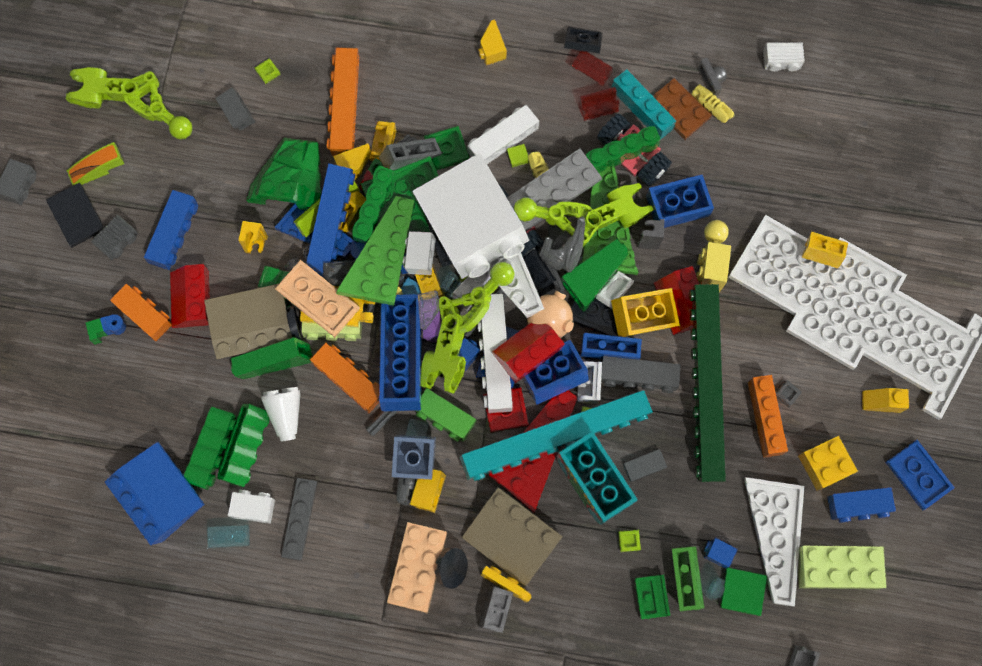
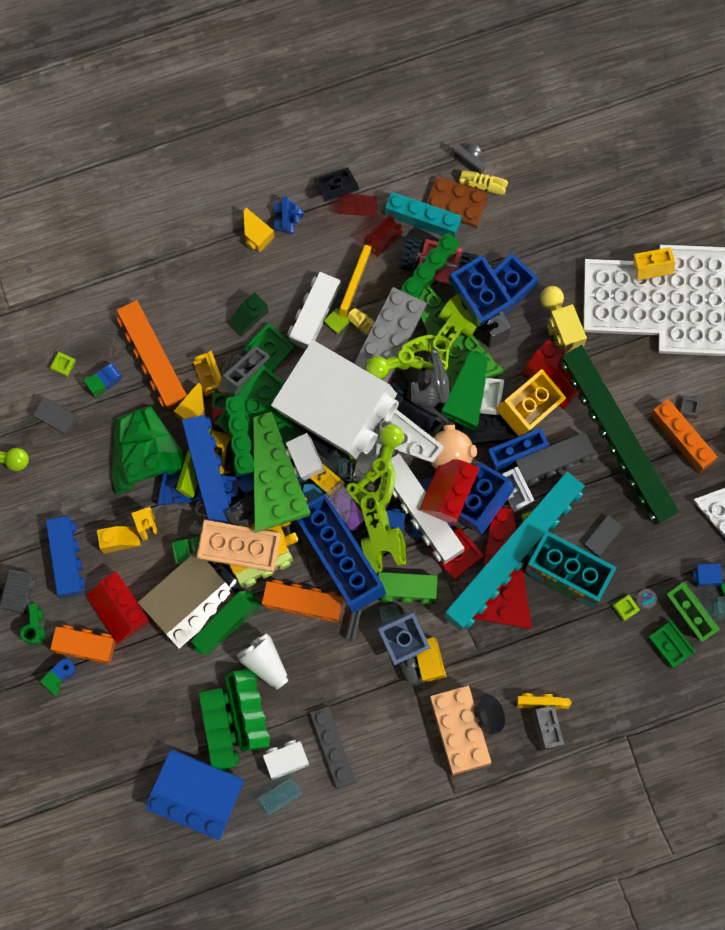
camera: 25 degrees left, 0 degrees up
(116, 267) = (36, 615): none -> green plate
(222, 238) = (118, 538): none -> yellow slope
(291, 101) = (103, 380): none -> leg
(445, 109) = (248, 314): none -> dark green slope
(511, 537) = (525, 660): dark tan slope -> none
(528, 46) = (290, 215): none -> blue hips
(552, 129) = (353, 285): none -> yellow tile
(652, 543) = (646, 599): none -> clear tile
(654, 190) = (480, 290): none -> blue brick
(783, 56) = (522, 105): white brick -> none

